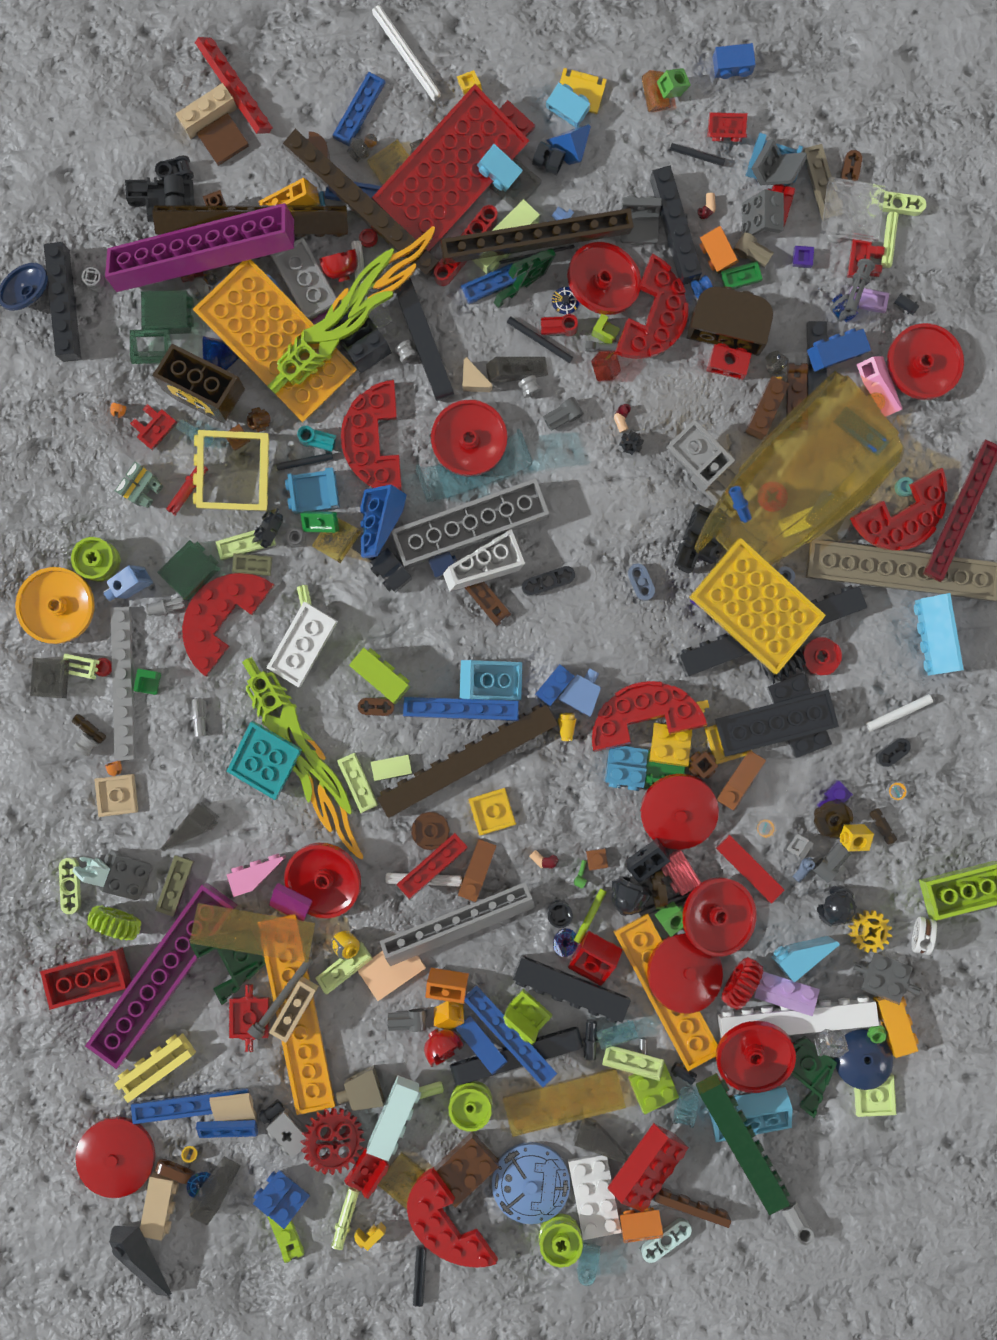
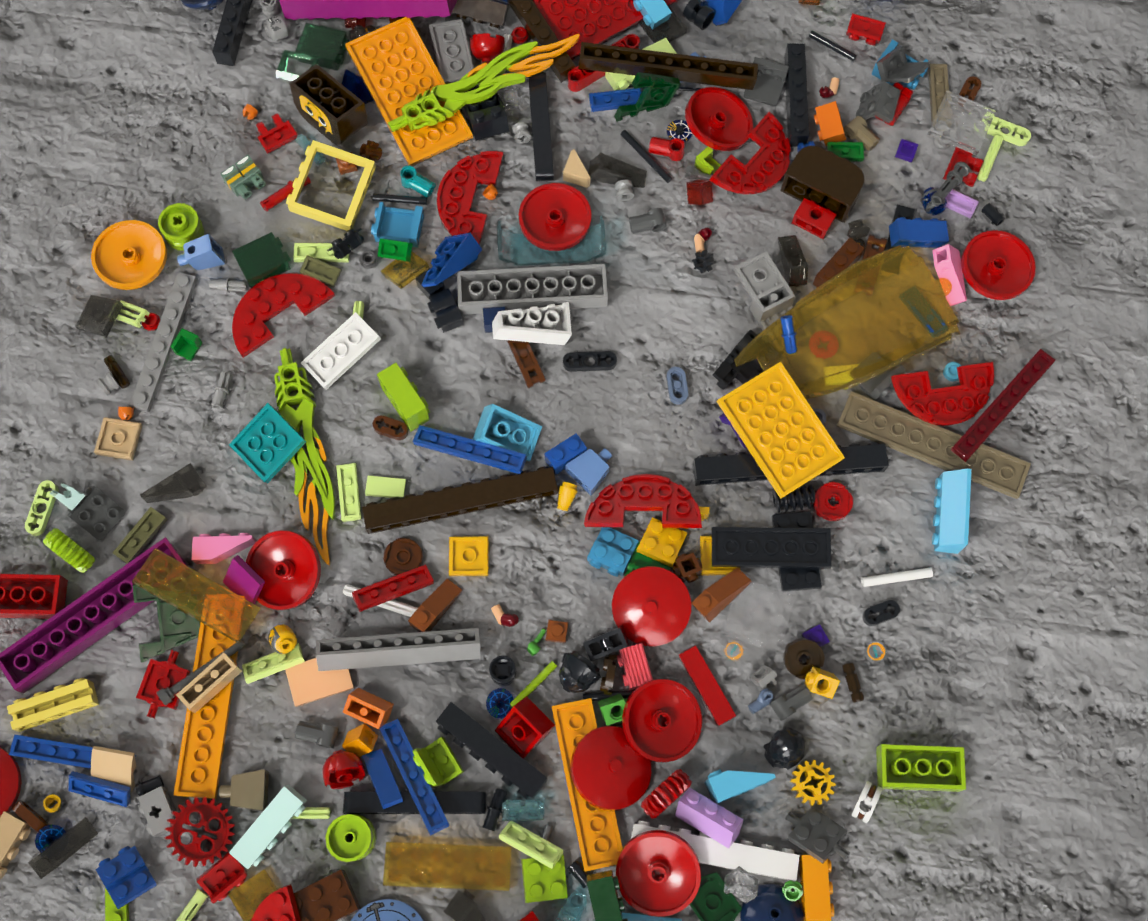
camera: 15 degrees right, 15 degrees down
(111, 304) = (277, 28): none -> light grey head
(394, 427) = (490, 192): none -> orange hinge
(720, 415) = (793, 261): none -> clear smoke slope

